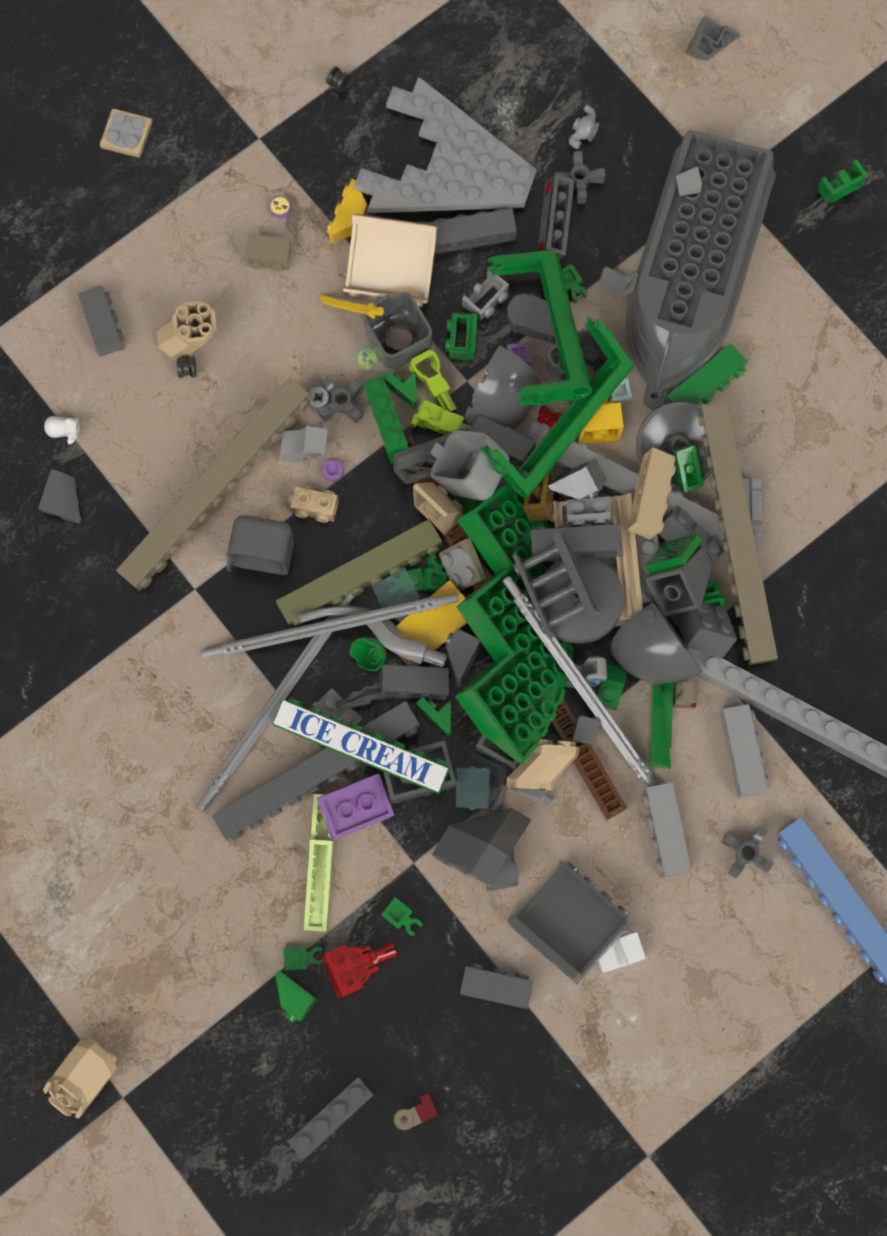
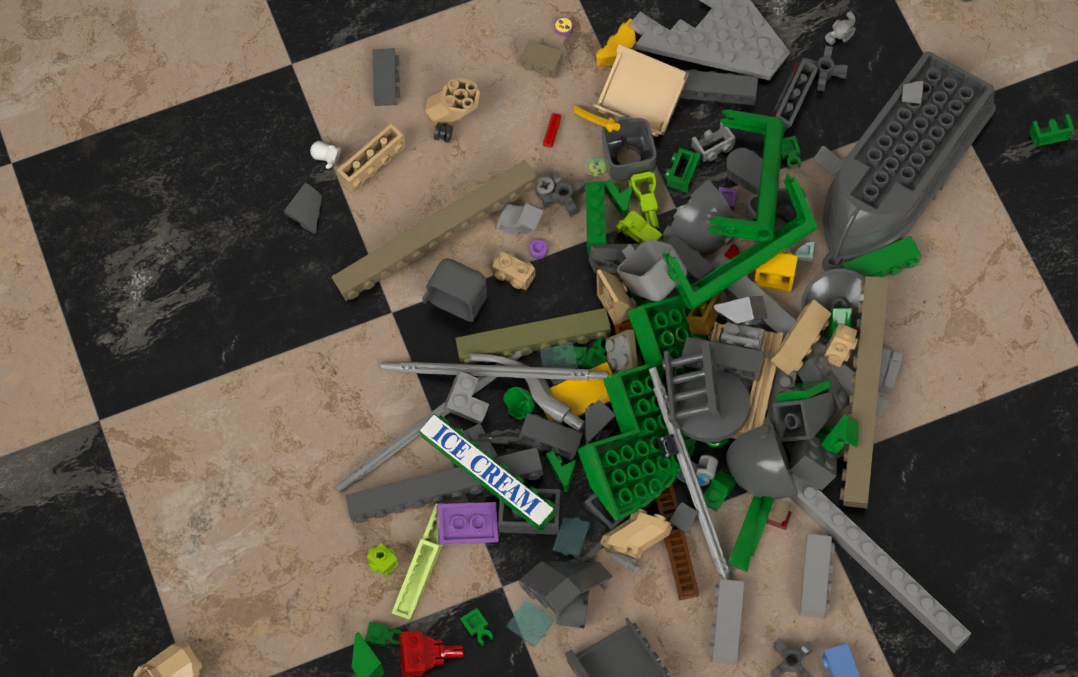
camera: 20 degrees right, 10 degrees down
(116, 419) = (371, 158): none -> tan brick
(283, 876) = (382, 559): none -> lime brick
(303, 667) = (460, 400): none -> light grey brick
(305, 330) = (552, 130): none -> red axle
(456, 895) = (530, 623): none -> clear light blue piece
(550, 666) = (667, 446): none -> black bush
(696, 490) = (840, 344): none -> tan brick
(731, 587) = (844, 432): none -> green slope

